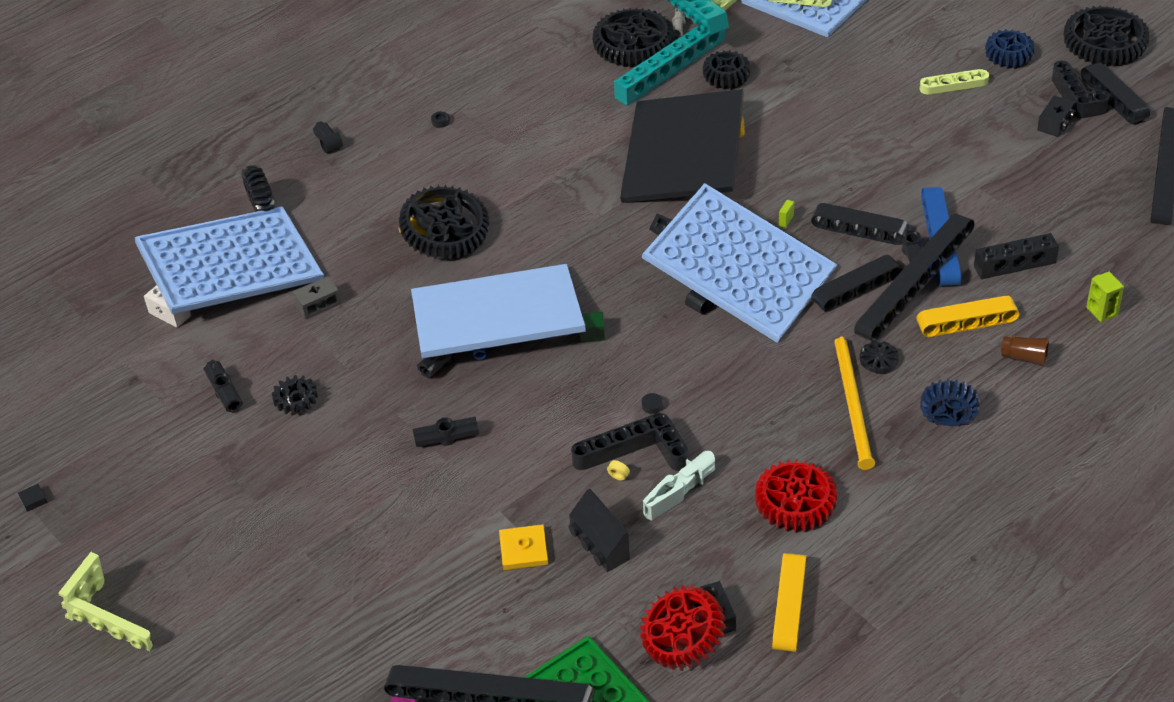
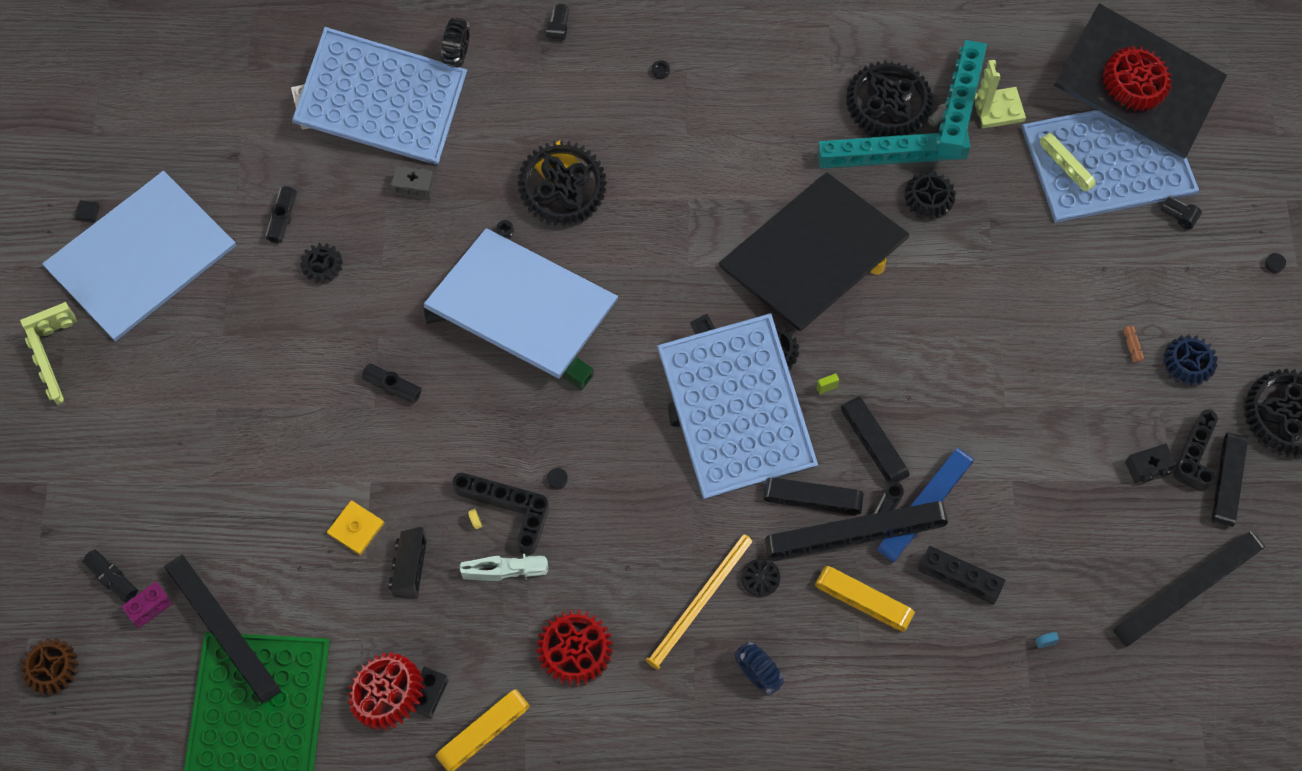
camera: 35 degrees right, 20 degrees up
(116, 497) = (139, 255): none -> light blue tile
(426, 279) = (505, 223): none -> black bush
(934, 84) = (1109, 353): yellowish green beam -> none
(960, 64) = (1133, 344): none -> nougat axle
(1026, 349) = (874, 667): reddish brown plant -> none
(1105, 296) = (983, 674): lime brick -> none
(1118, 253) = (1047, 640): none -> dark azure tile

